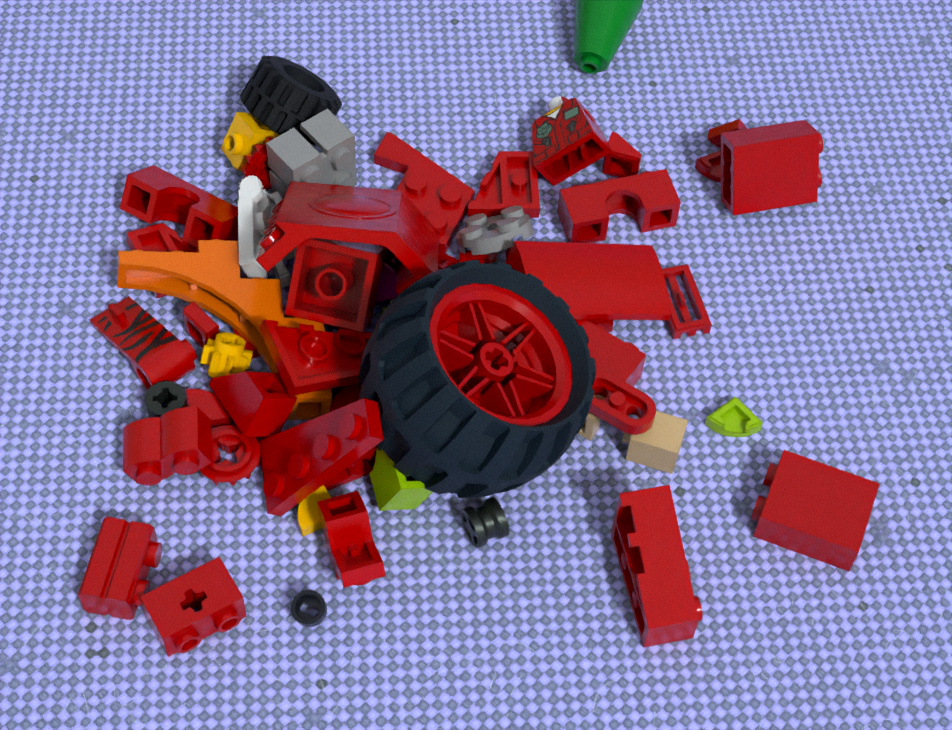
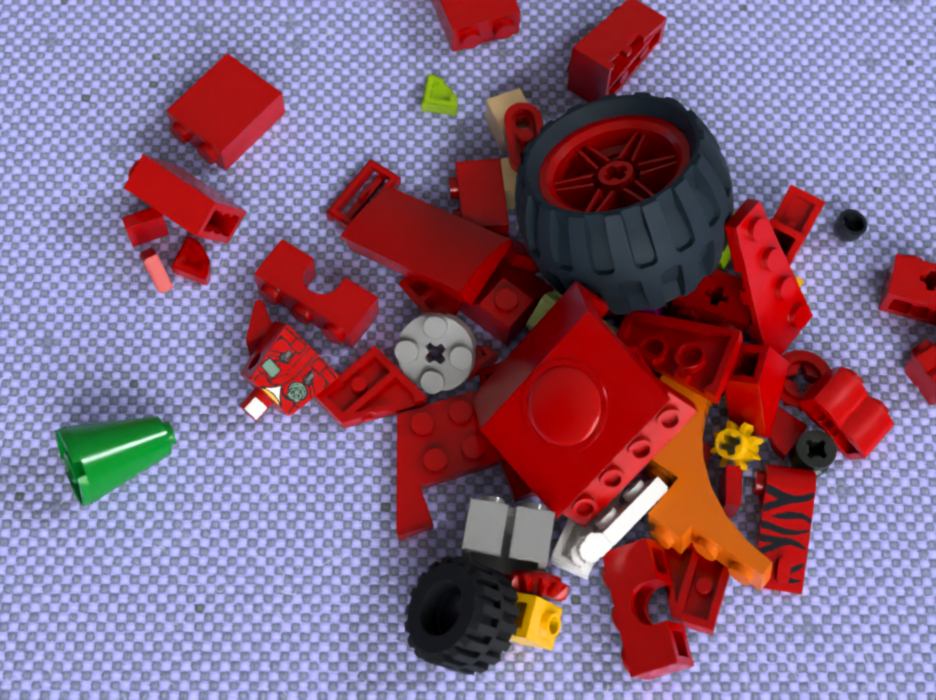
camera: 130 degrees left, 10 degrees up
(843, 260) = (225, 112): none -> red brick

